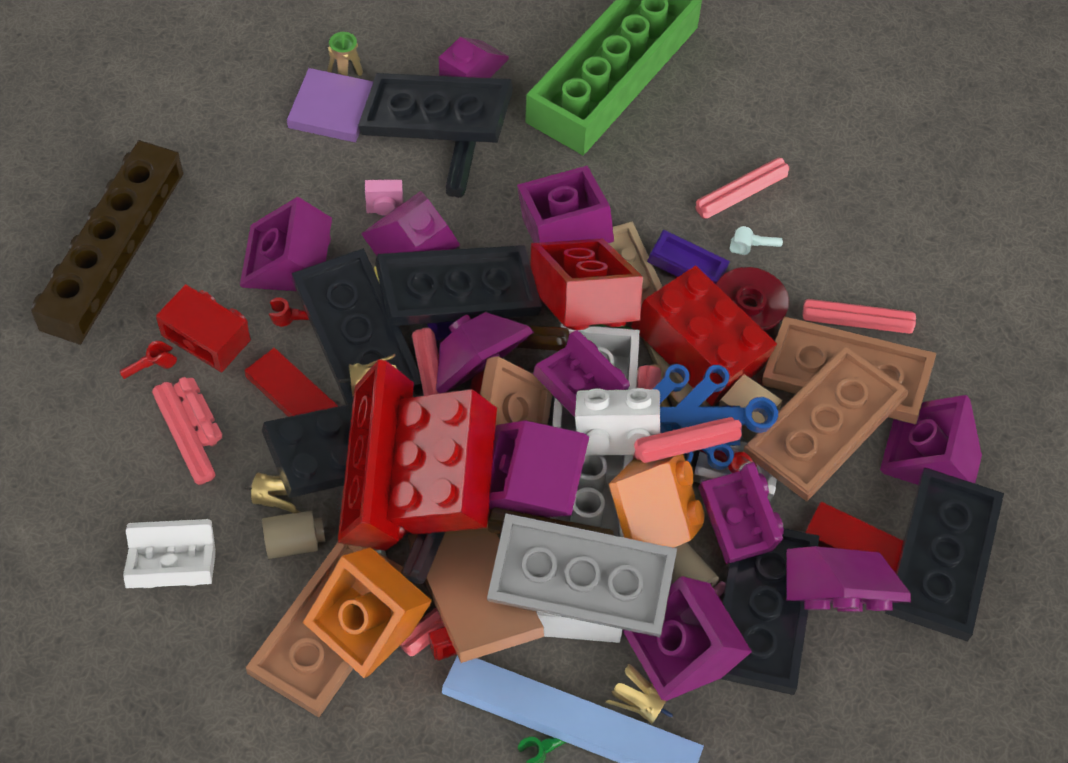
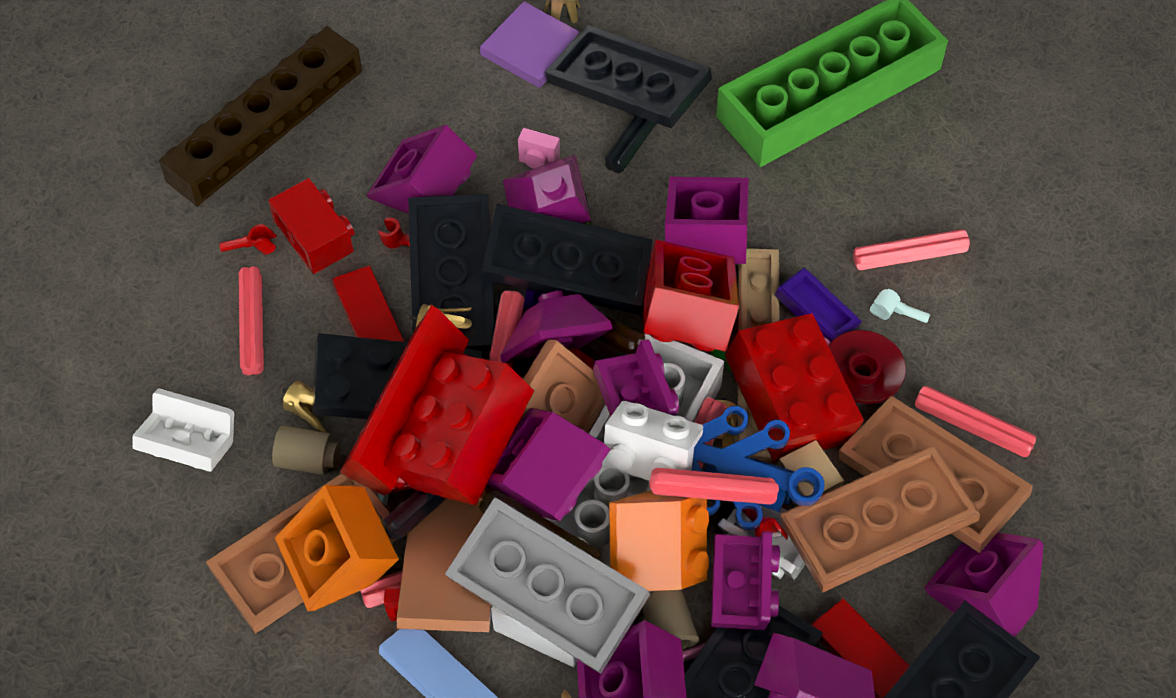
camera: 25 degrees right, 0 degrees up
(198, 411) = (272, 304): coral axle -> none
(471, 59) = (687, 37): magenta slope -> none

